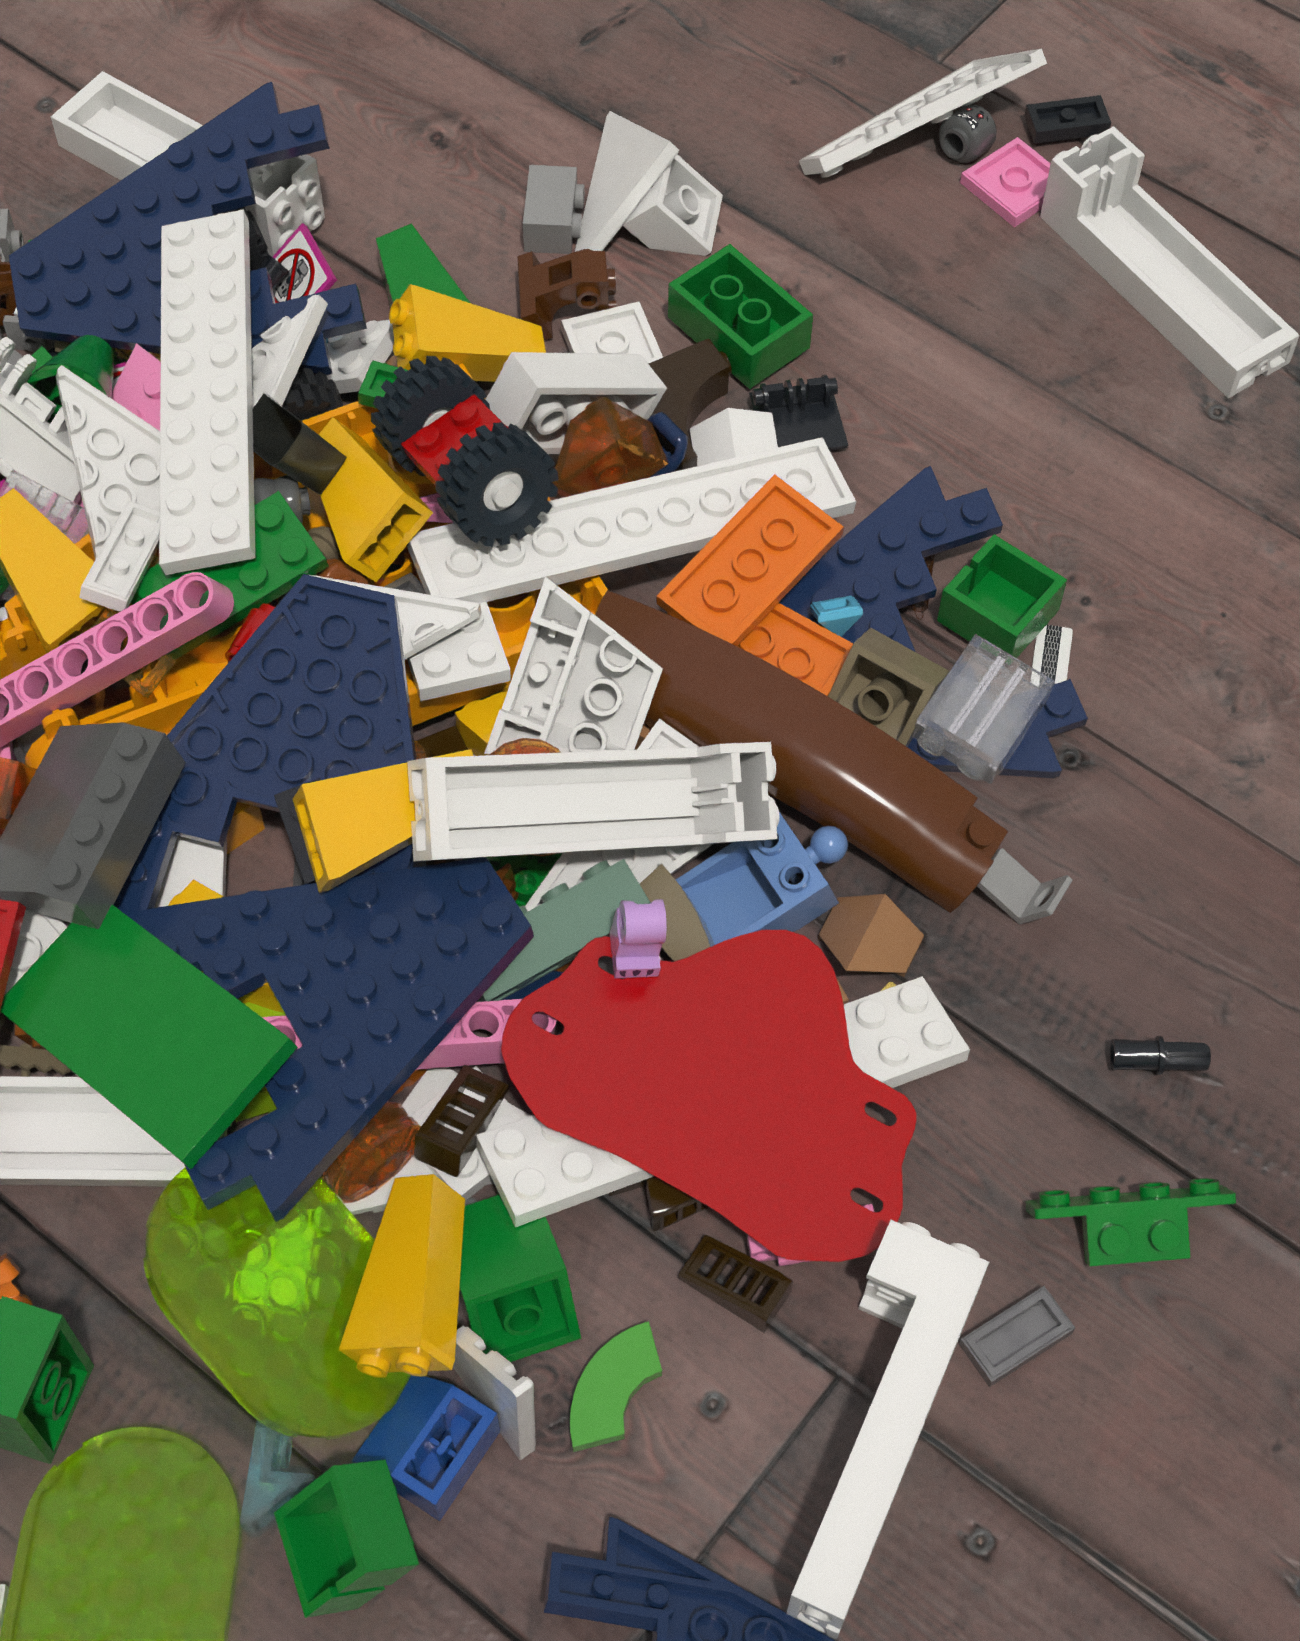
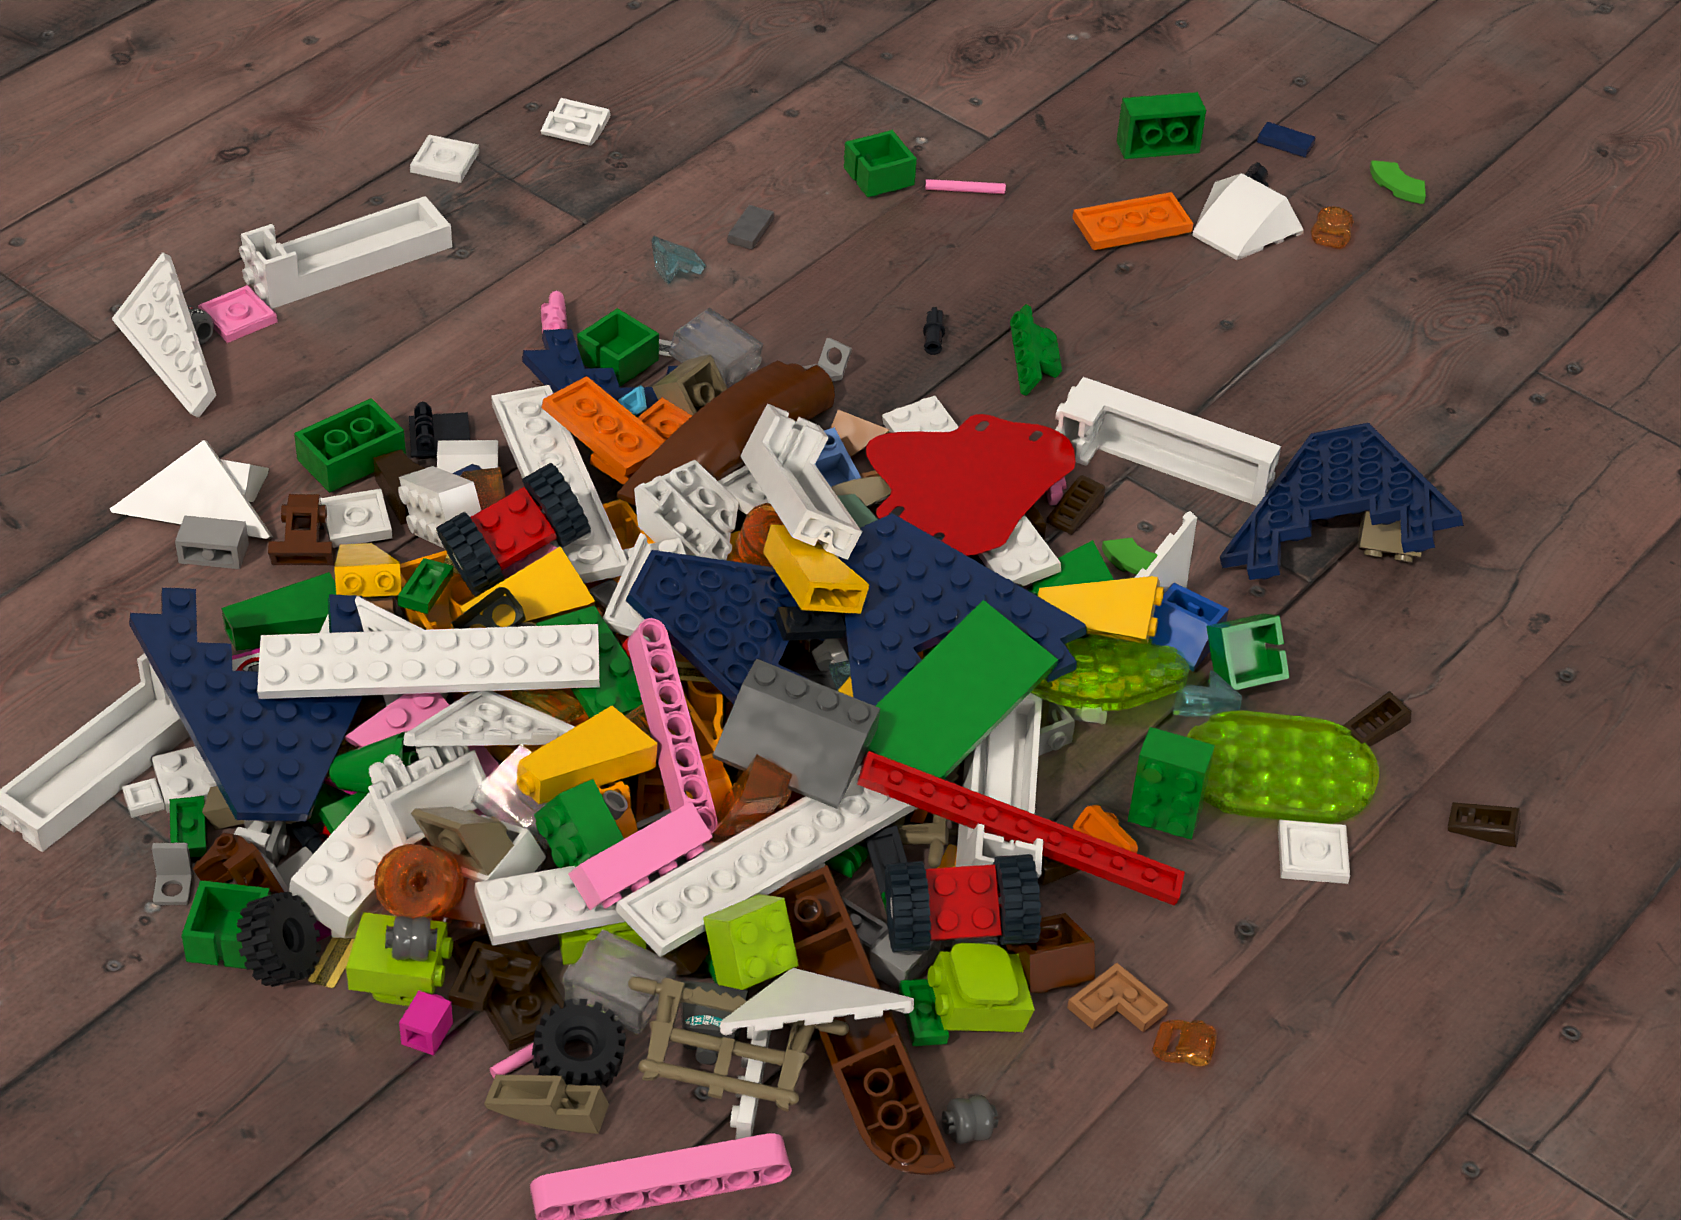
camera: 90 degrees left, 15 degrees down
(123, 558) = (584, 703): white tile -> none
(638, 938) = (887, 491): lavender leg -> none
(1059, 525) = (554, 314): none -> bright pink hinge
(1067, 119) = (190, 277): black plate -> none
(1246, 662) = (672, 257): none -> clear light blue slope

